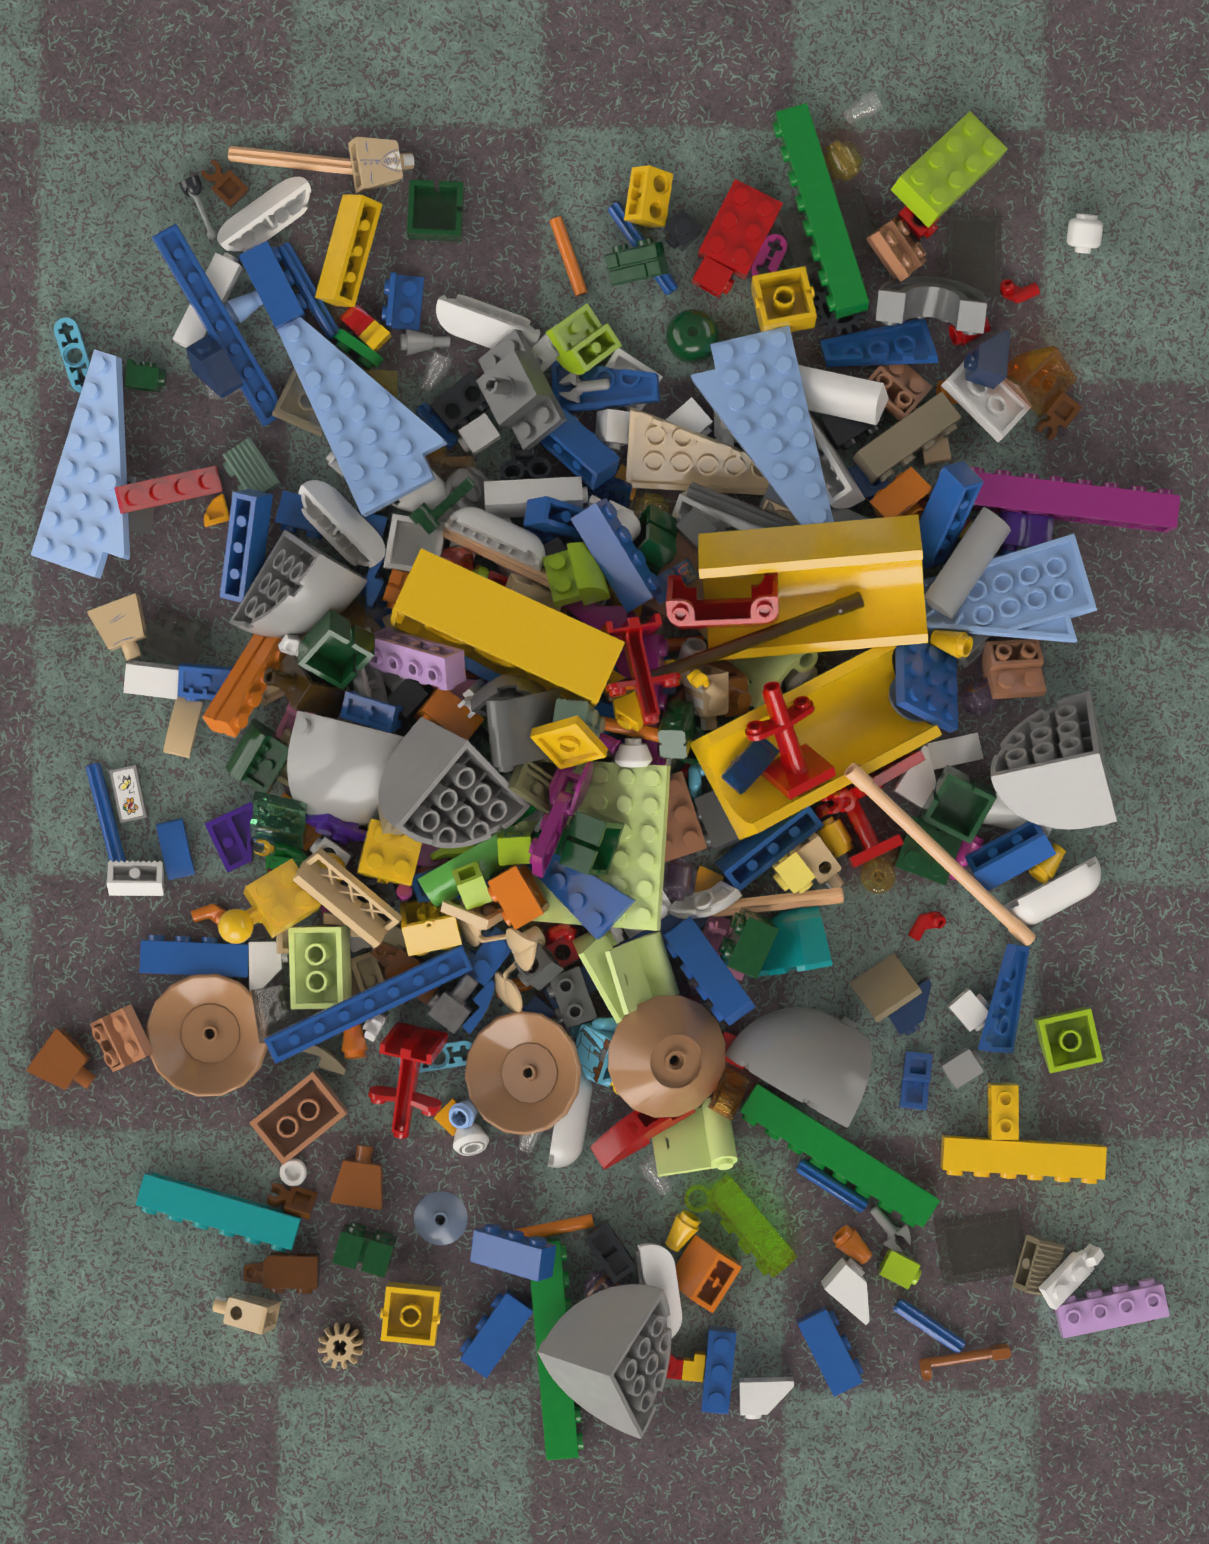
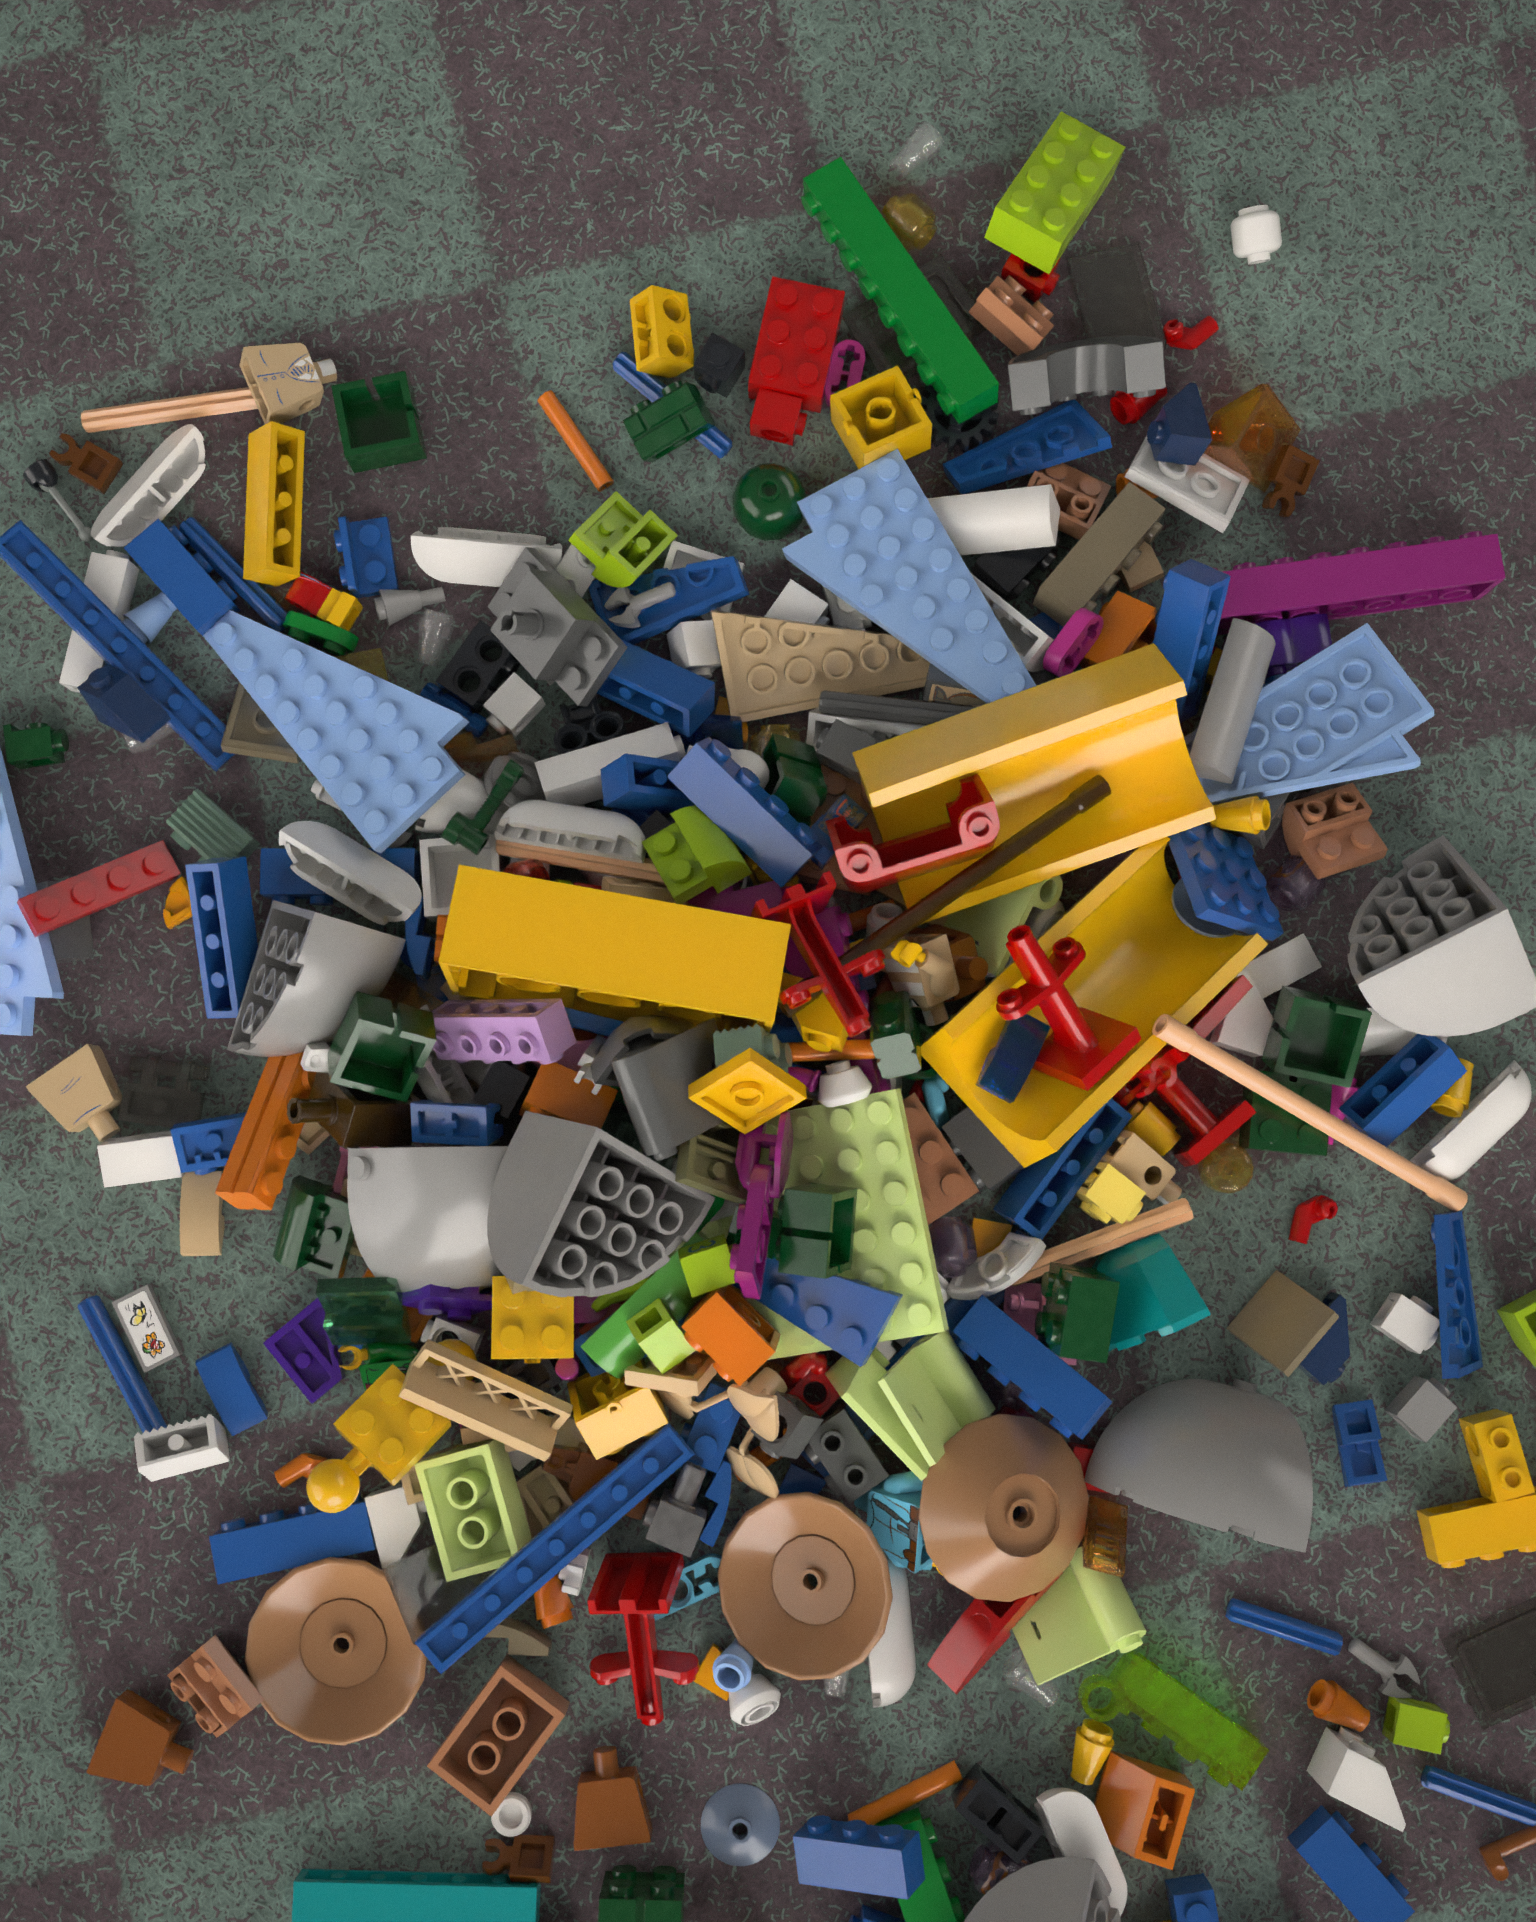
camera: 15 degrees left, 5 degrees down
(839, 1155) = (1284, 1581): green brick -> none
(869, 496) = (1073, 642): none -> dark pink beam

